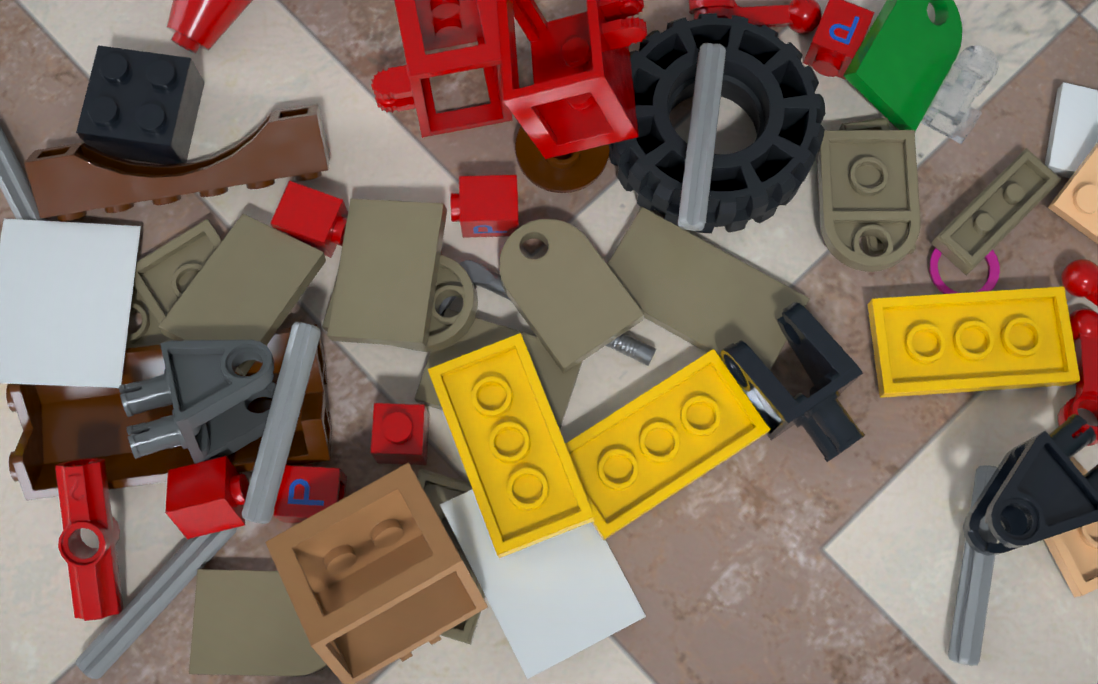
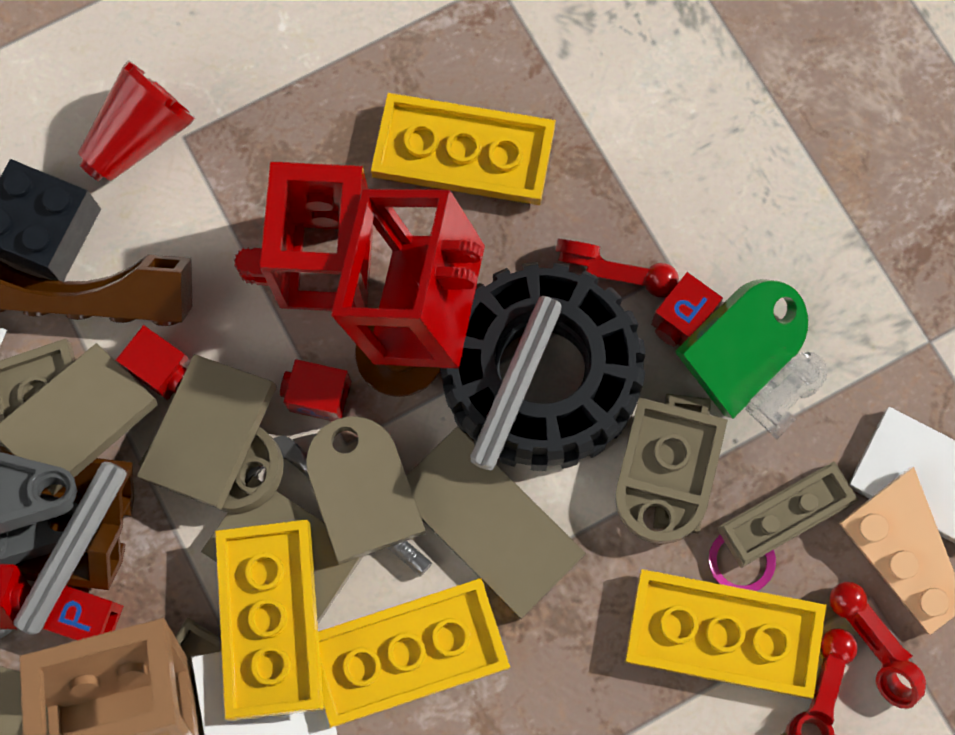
camera: 20 degrees right, 0 degrees up
(400, 434) = (177, 582): red brick -> none
(828, 369) = (555, 662): black piece -> none

